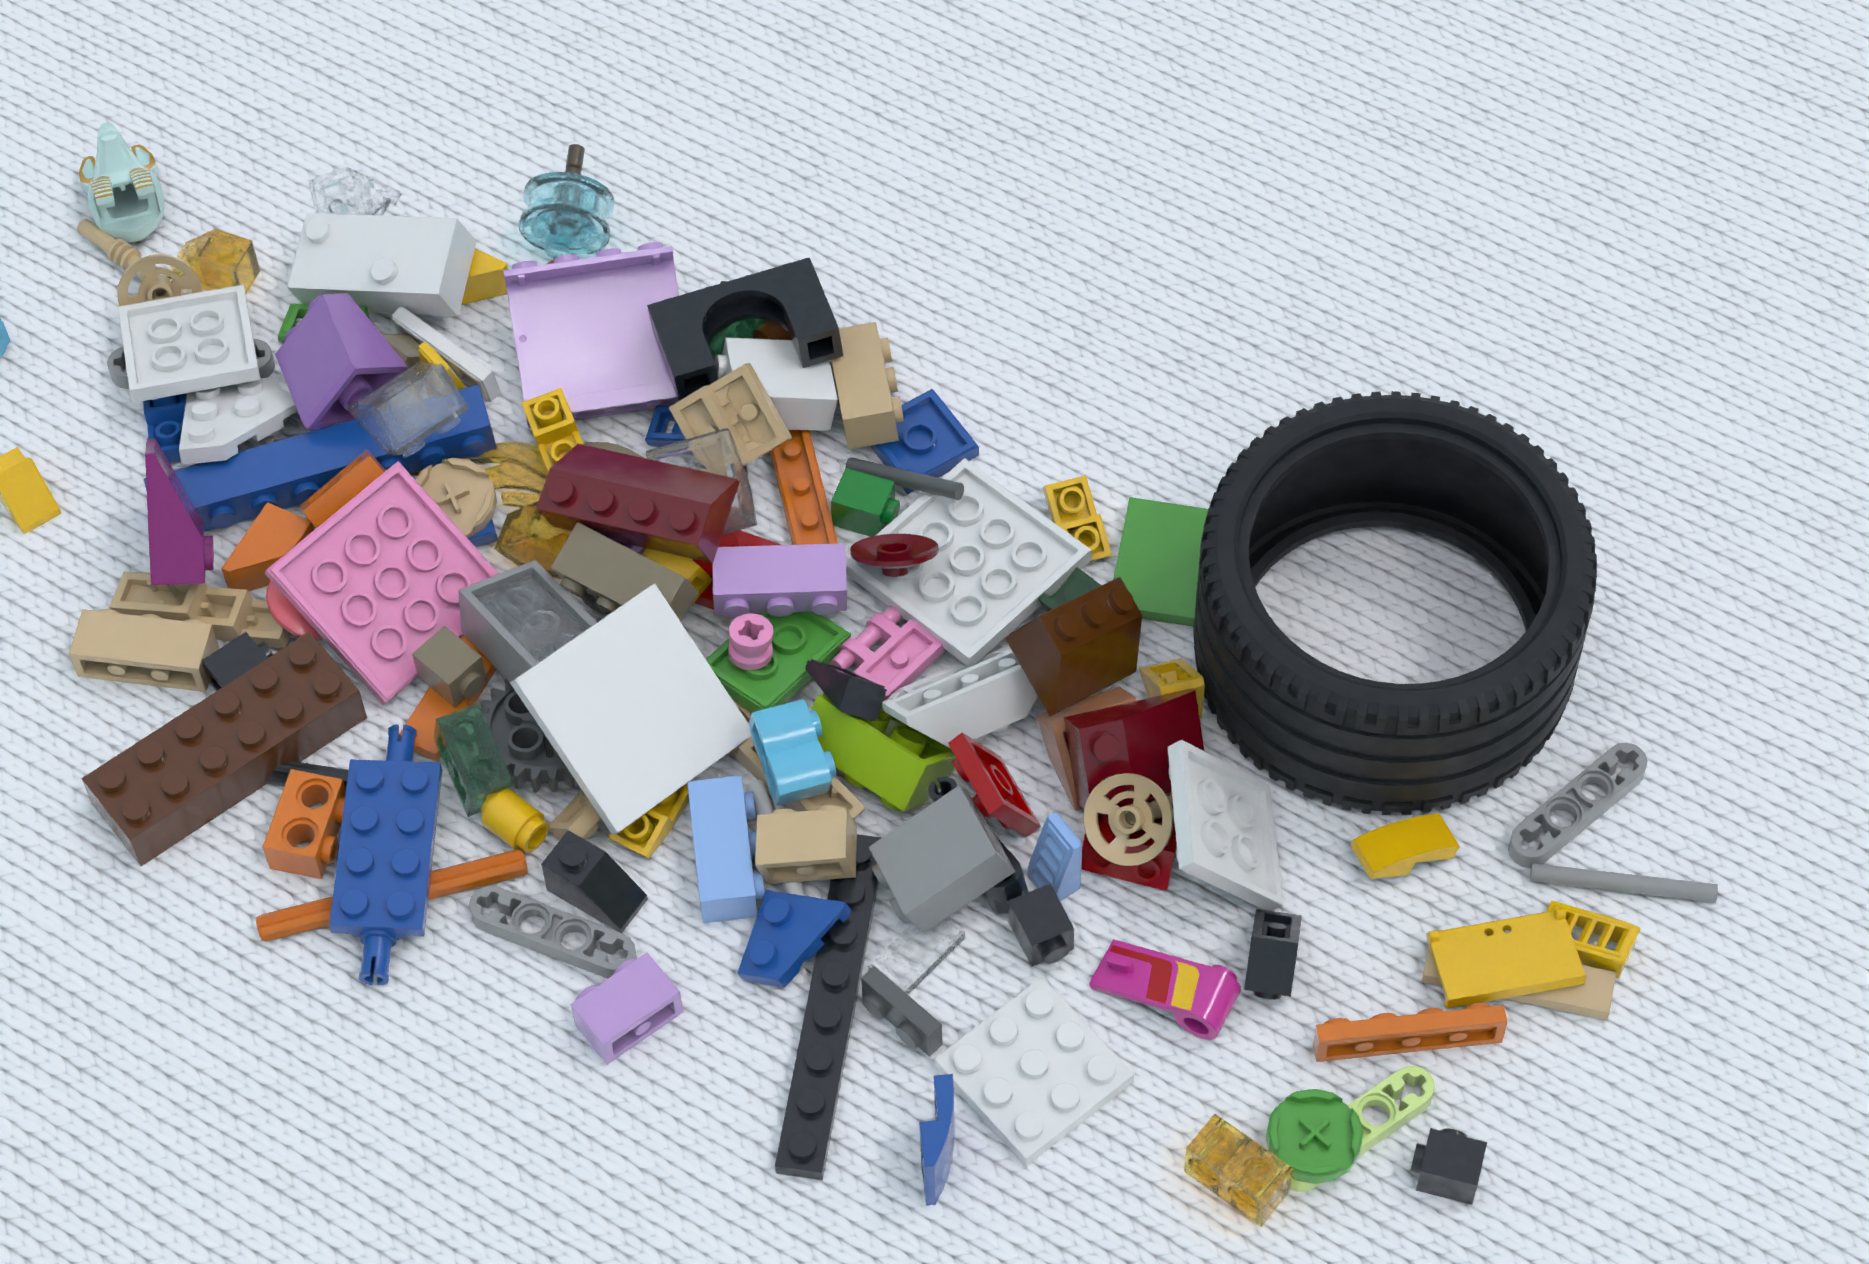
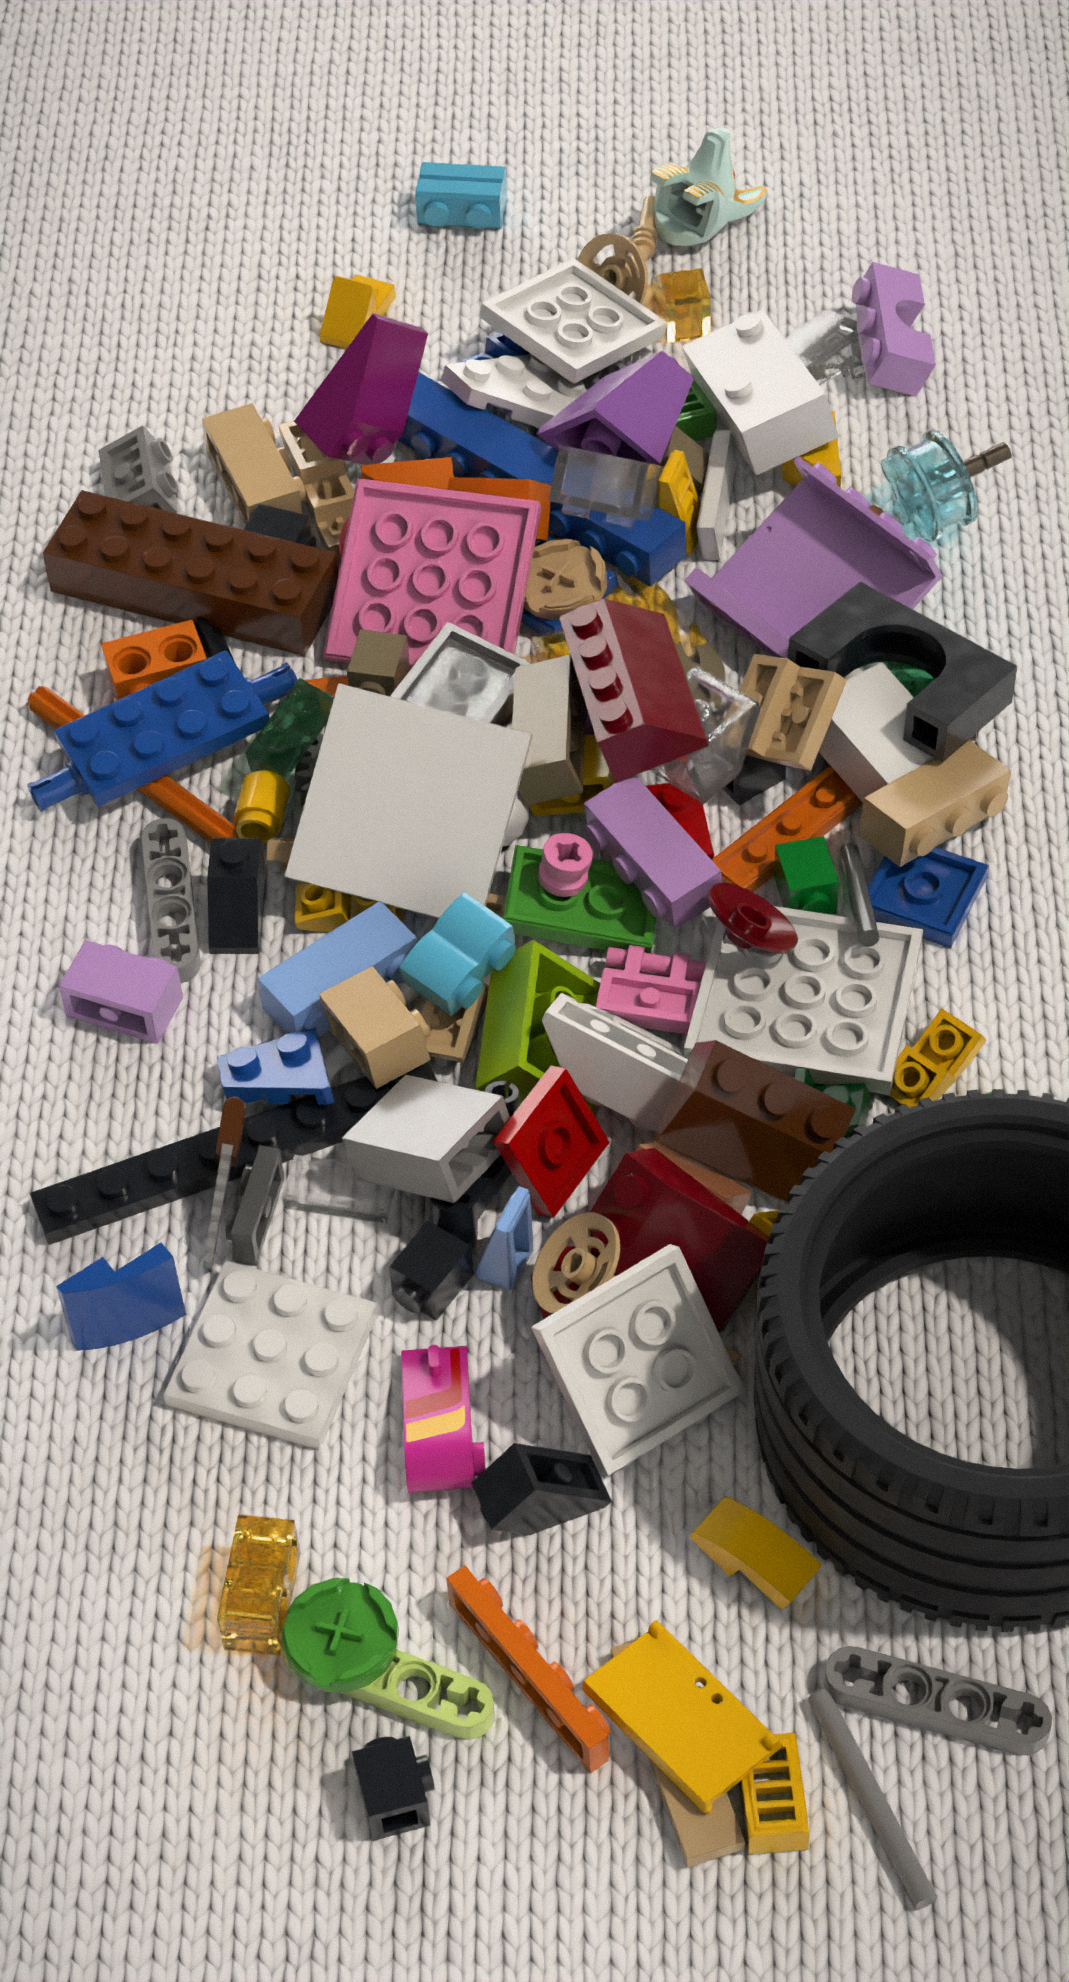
camera: 60 degrees right, 5 degrees down
(72, 738) = (139, 470): none -> light grey bracket
(400, 161) = (886, 308): none -> lavender arch
(552, 425) = (691, 603): yellow slope -> none
(848, 690) = (562, 962): black slope -> none
(850, 1000) = (226, 1157): none -> piece

